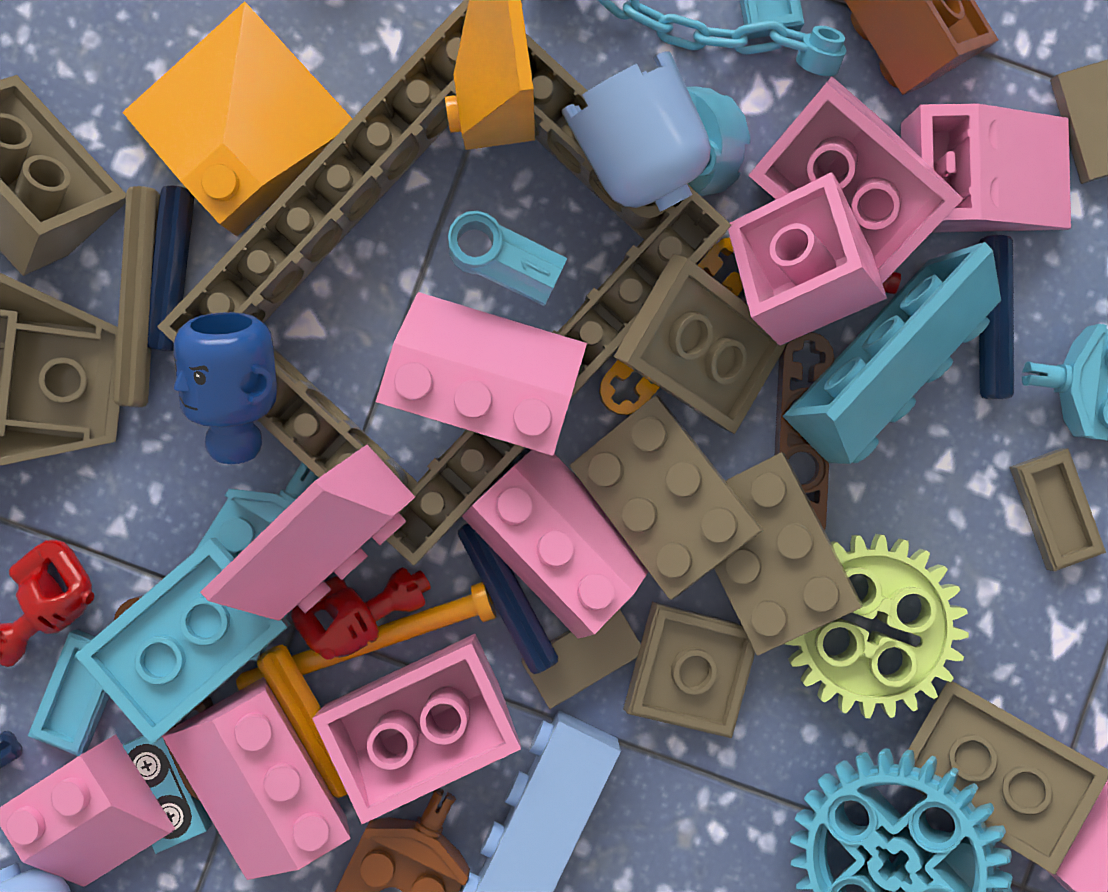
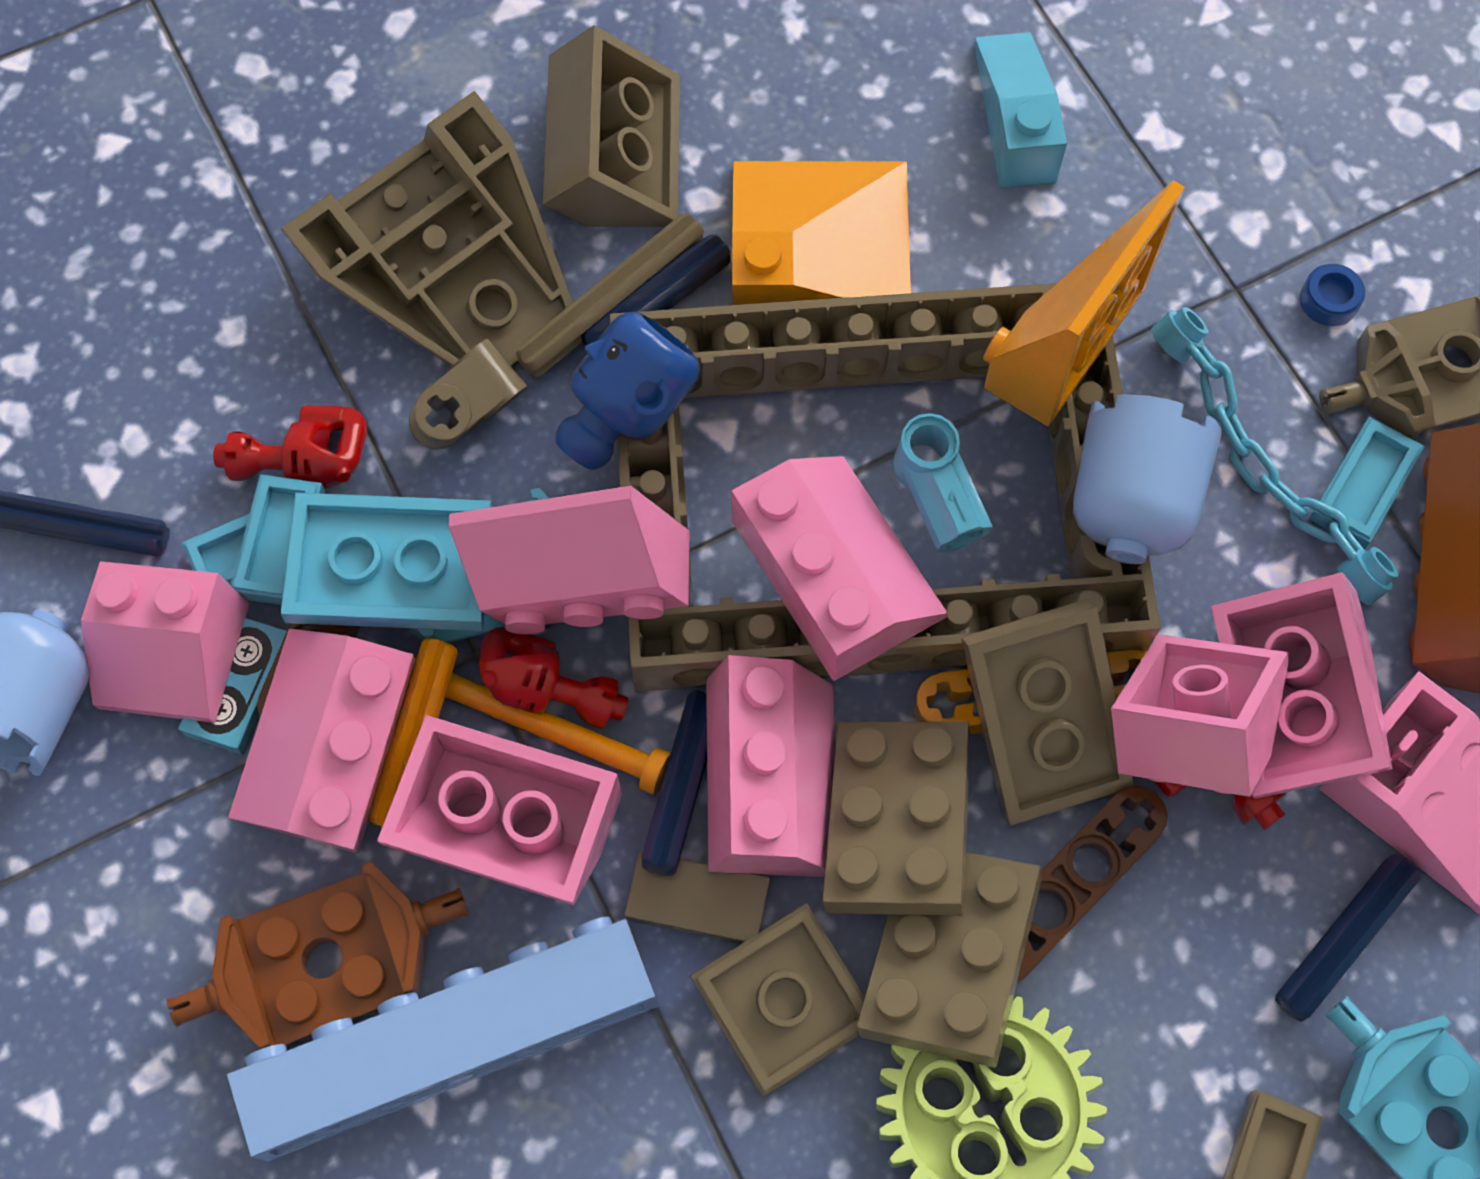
camera: 40 degrees right, 20 degrees down
(81, 691) = (266, 540): none -> medium azure tile
(114, 454) = (471, 391): none -> dark tan piece
(727, 137) = (1206, 566): medium azure cylinder -> none
(898, 355) = (1222, 872): medium azure slope -> none

